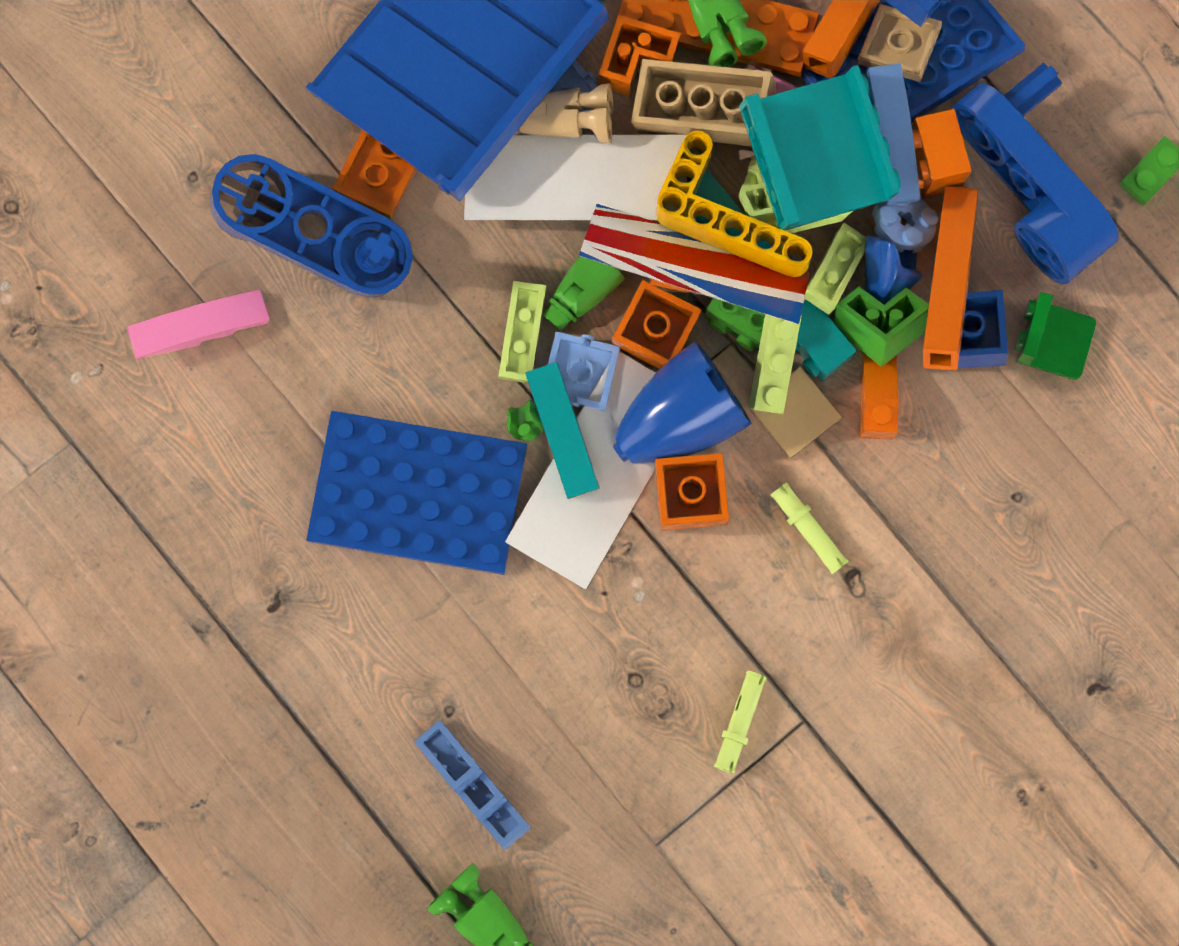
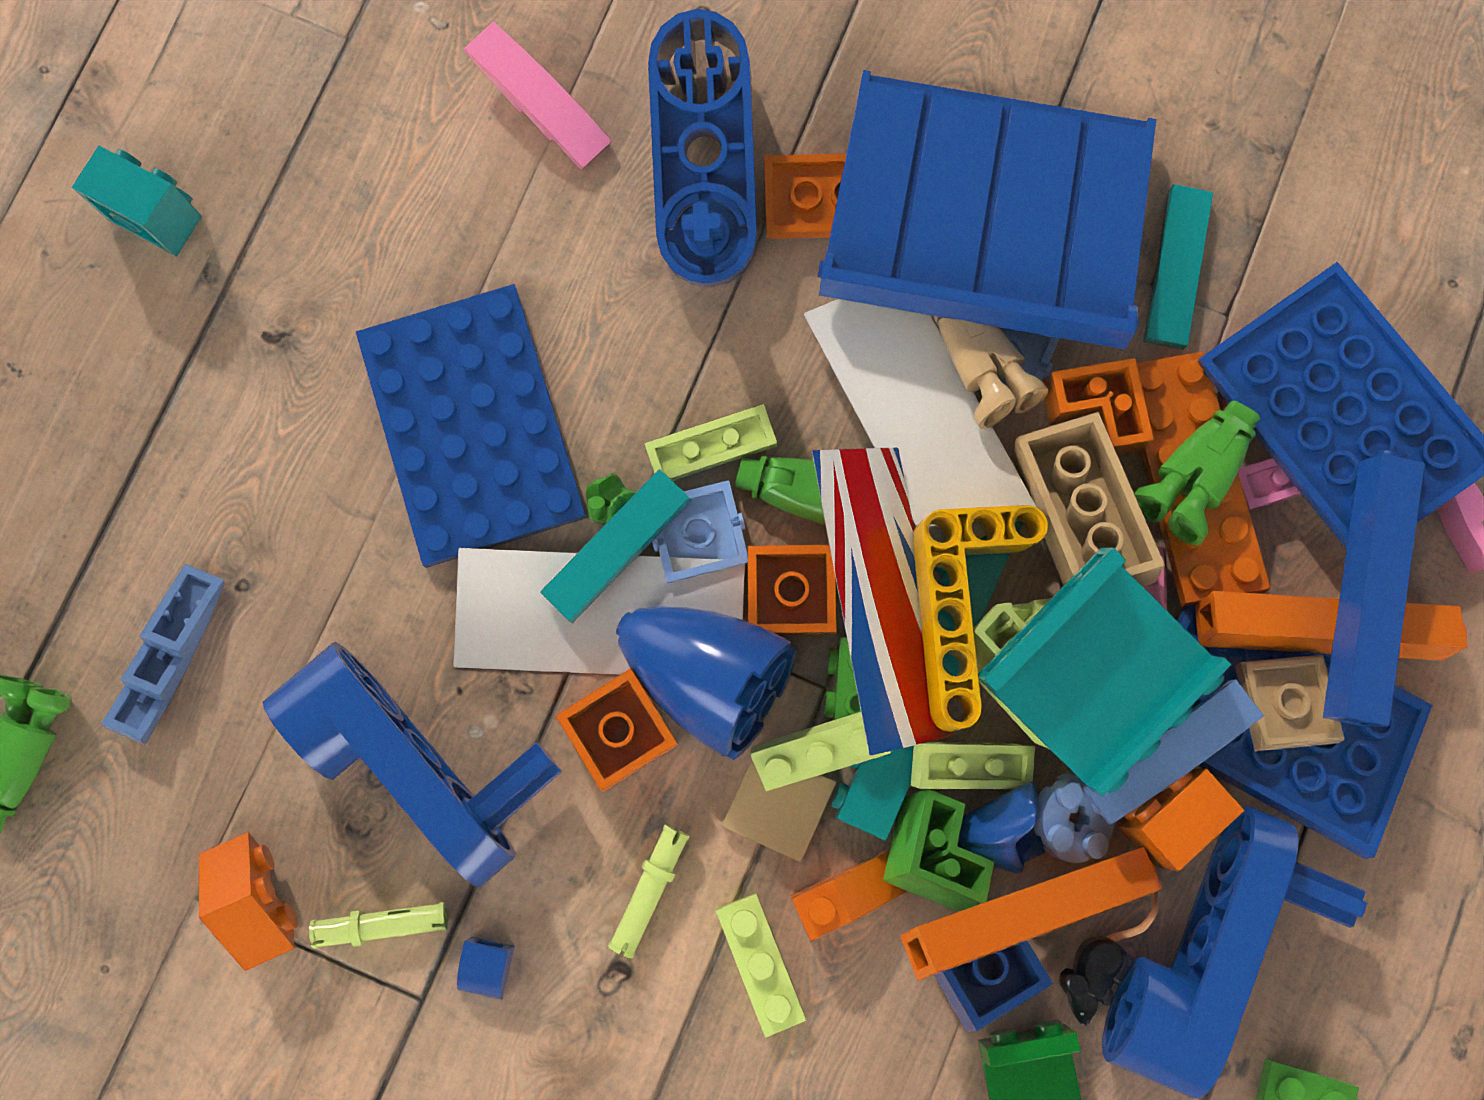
camera: 60 degrees right, 0 degrees up
(127, 645) = (138, 199): none -> teal brick
(586, 670) = (342, 713): none -> blue beam
(678, 799) = (242, 903): none -> orange brick
(806, 664) = (484, 967): none -> blue brick
(895, 479) = (760, 965): none -> yellowish green plate
(1007, 258) = (1098, 966): none -> black animal

